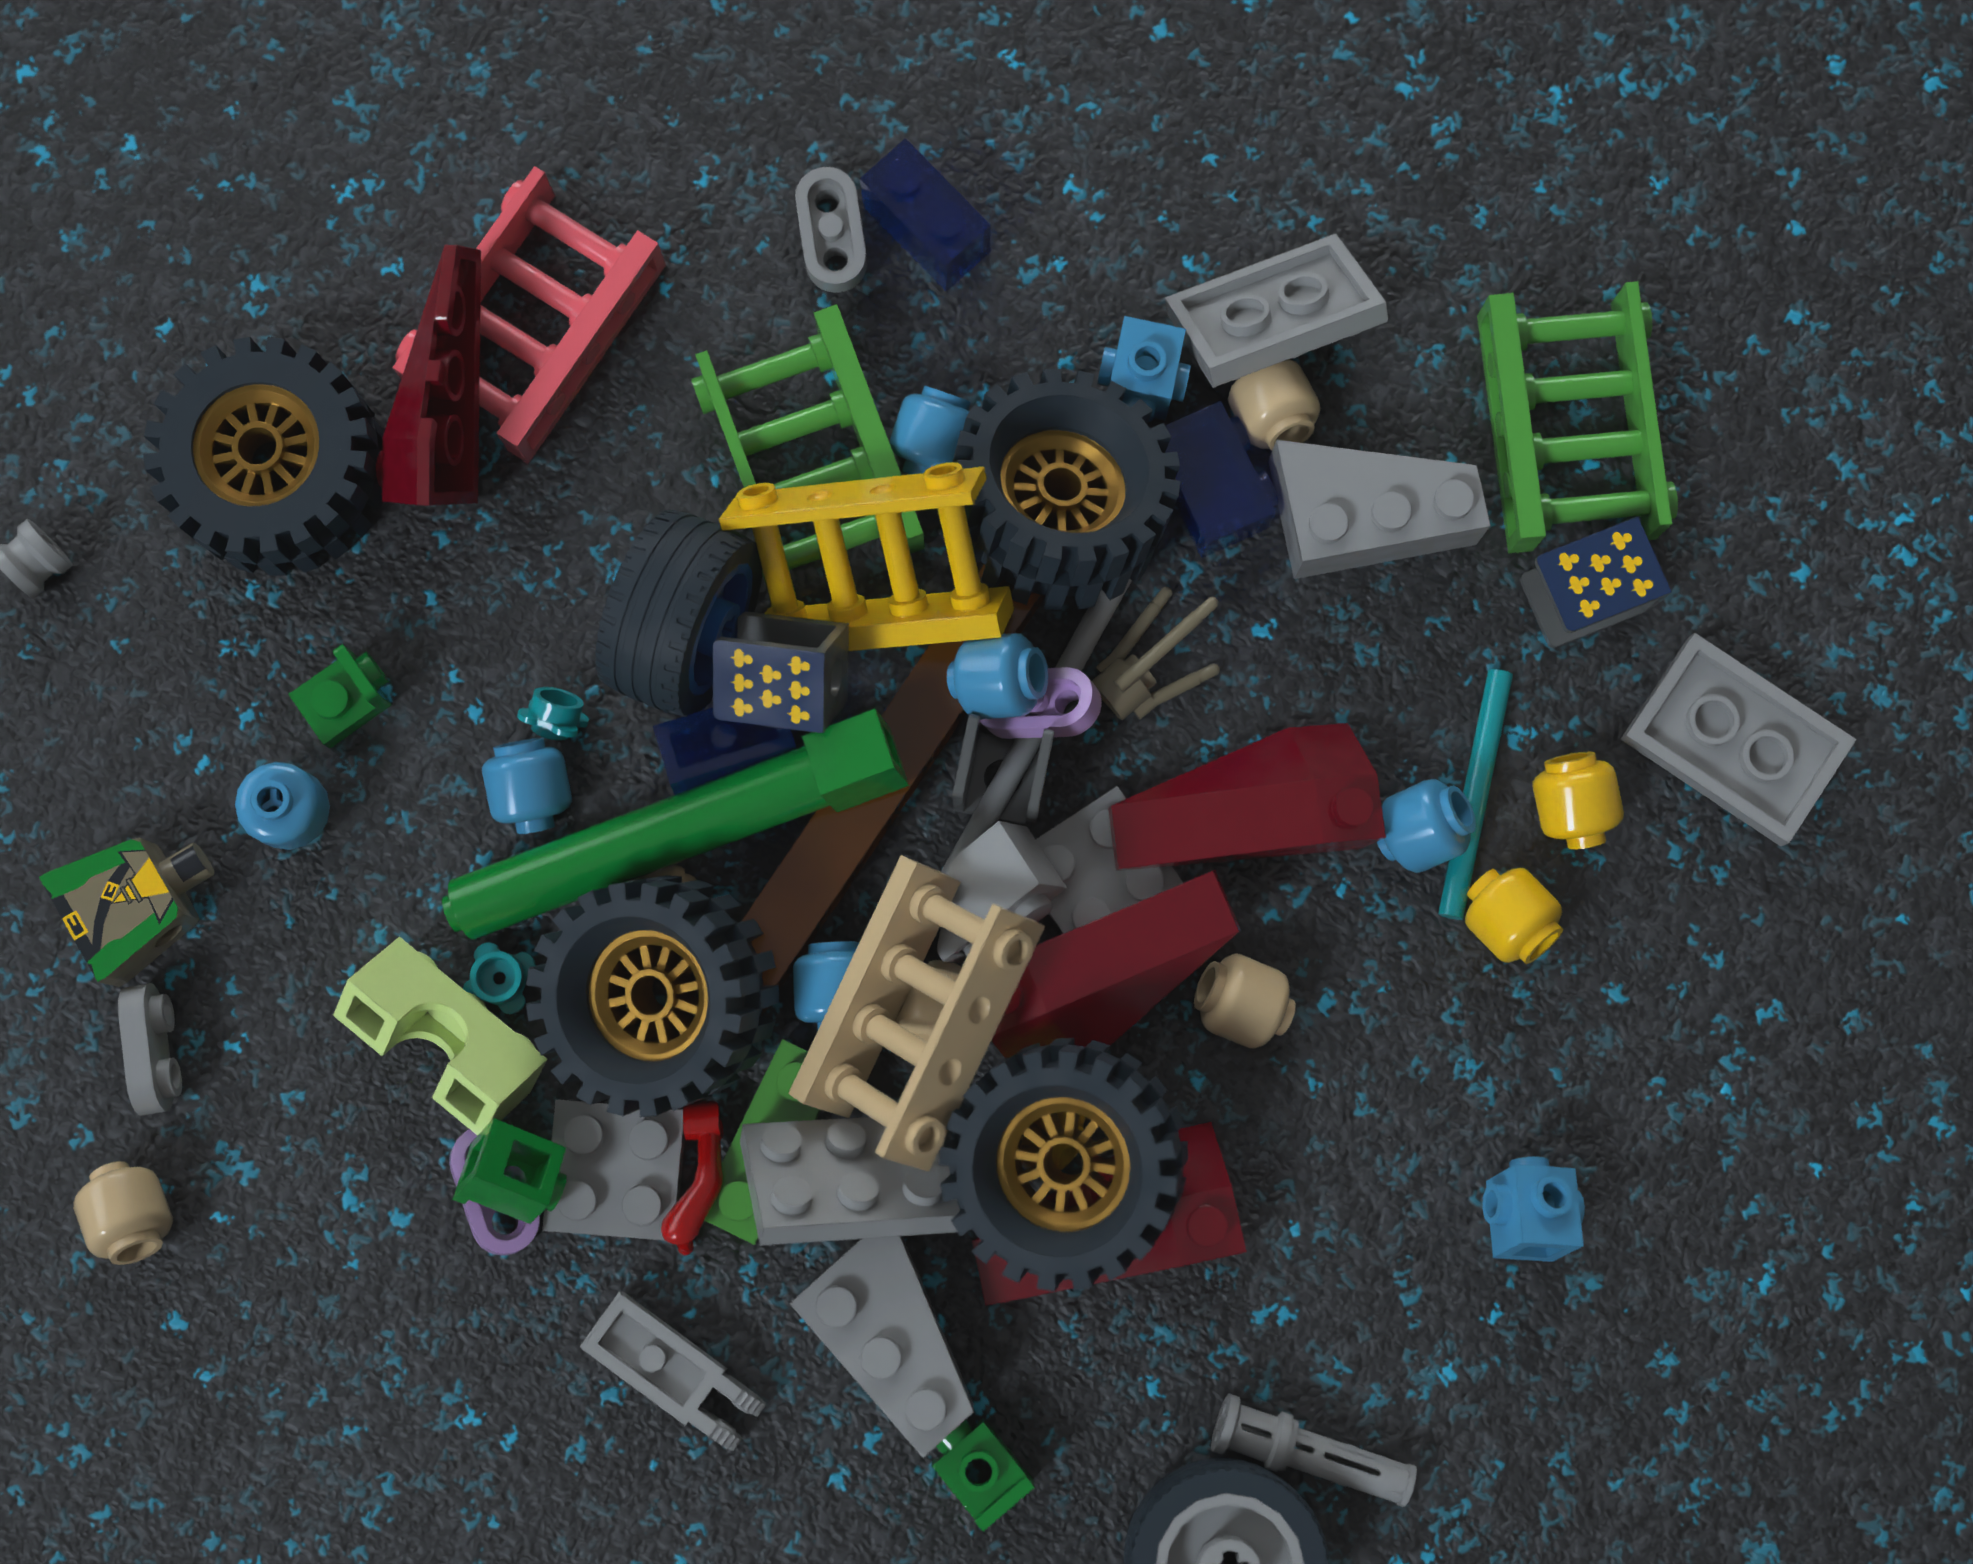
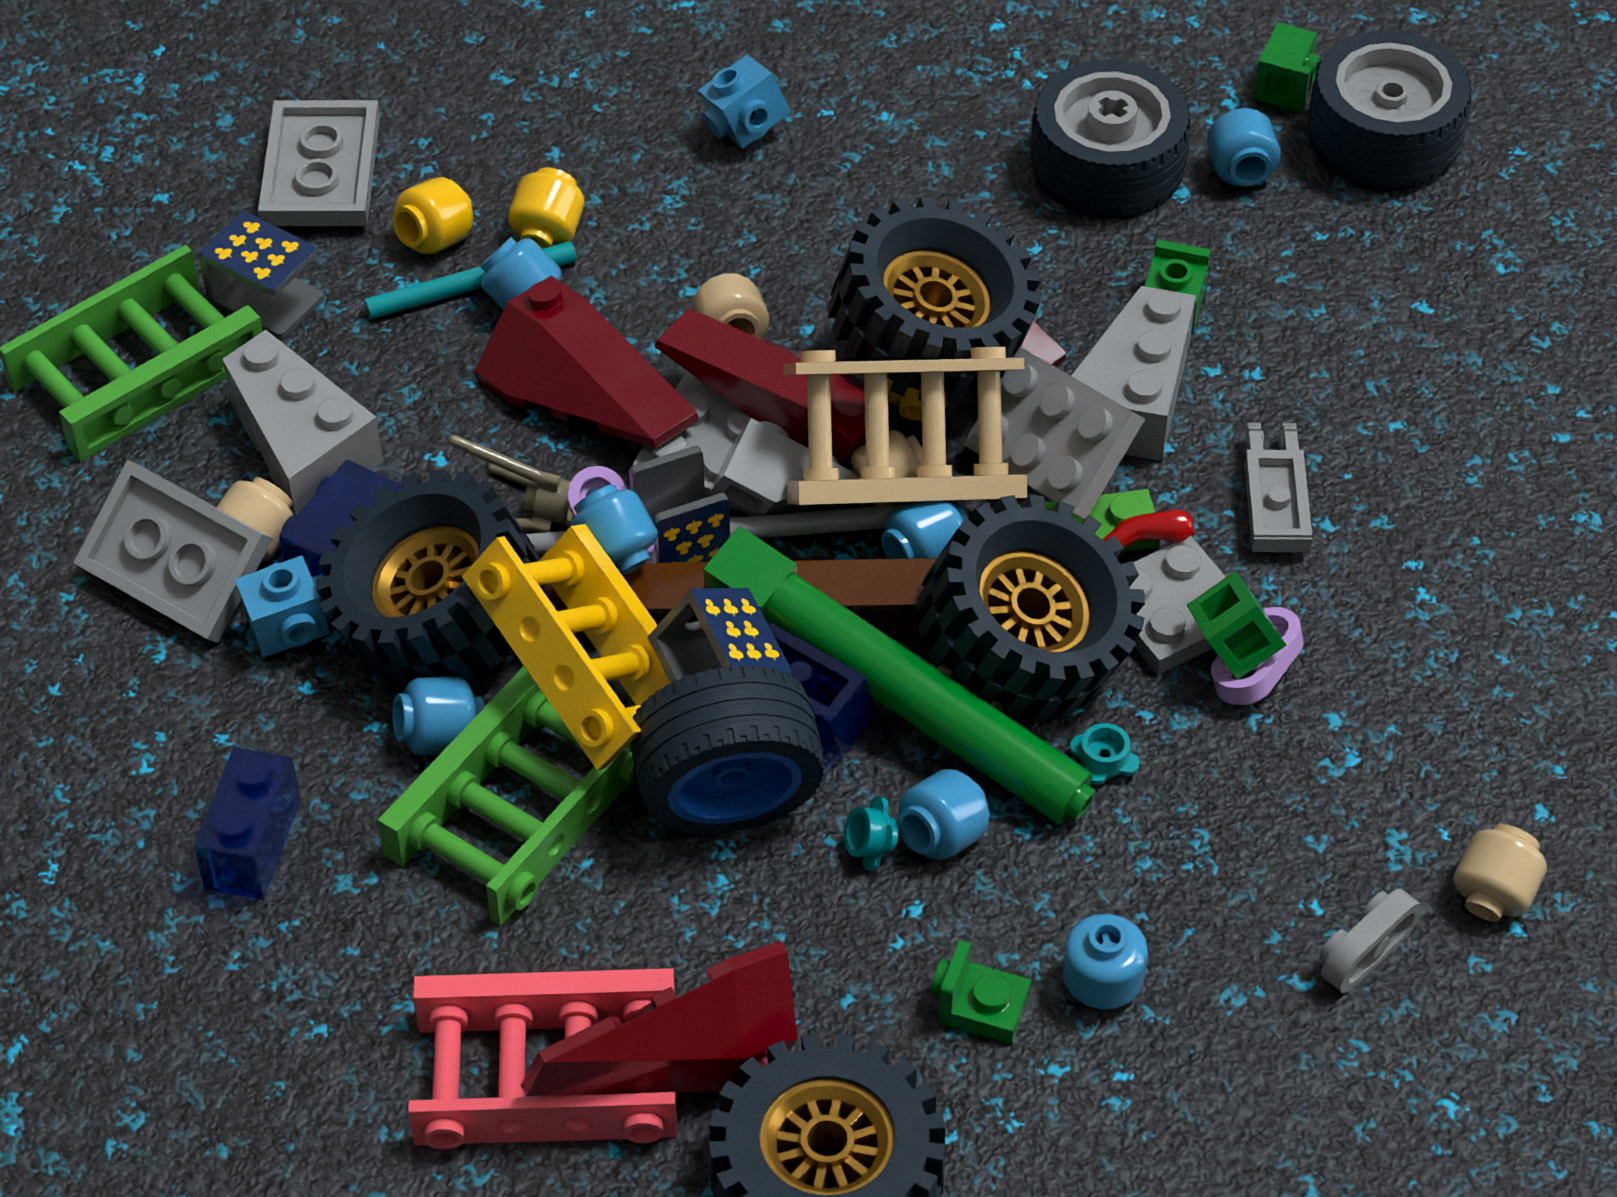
camera: 125 degrees left, 30 degrees down
(127, 904) = (1276, 1027): torso -> none
(407, 998) = (1176, 779): yellowish green arch -> none
(831, 232) = (302, 892): light grey plate -> none
(1282, 1433) = (1007, 157): light grey pin -> none

